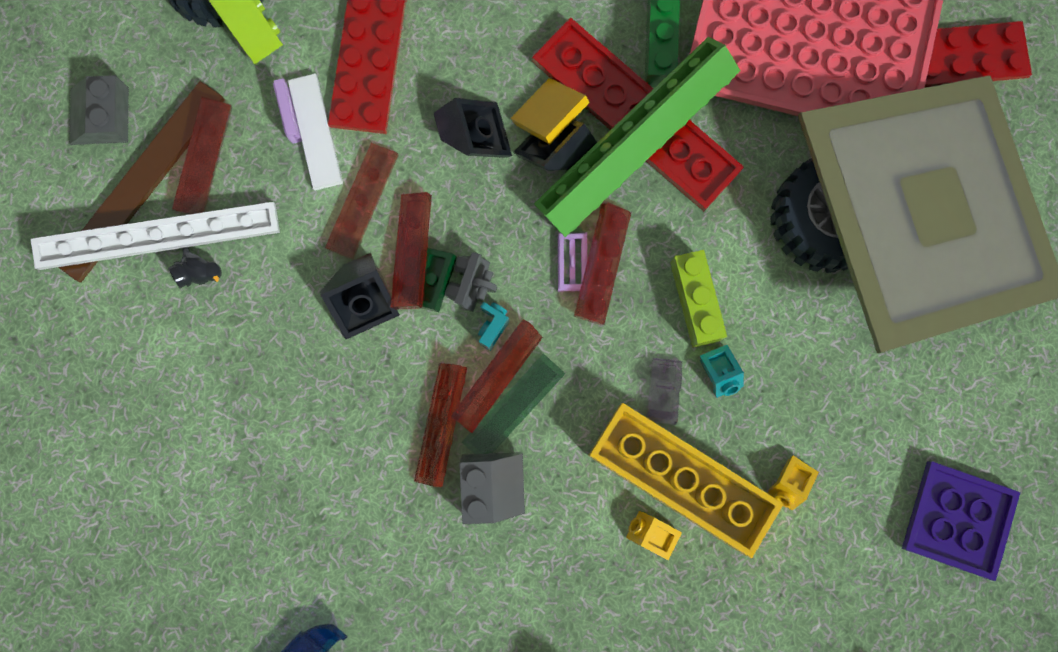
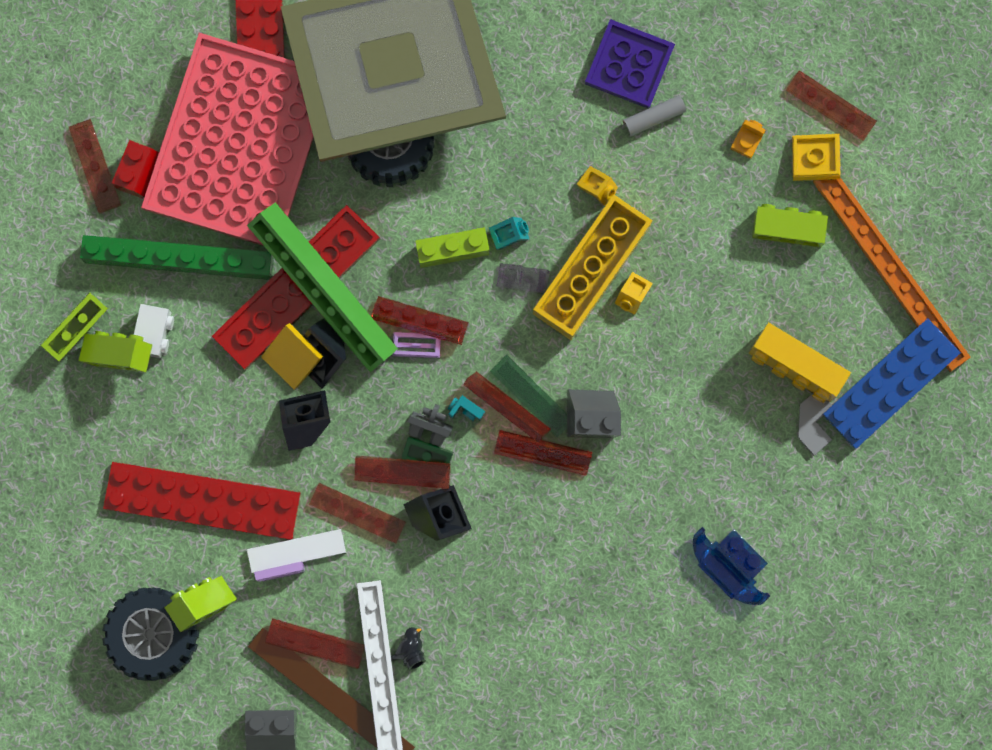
camera: 90 degrees left, 0 degrees up
(894, 557) = (655, 115): none -> light grey piece

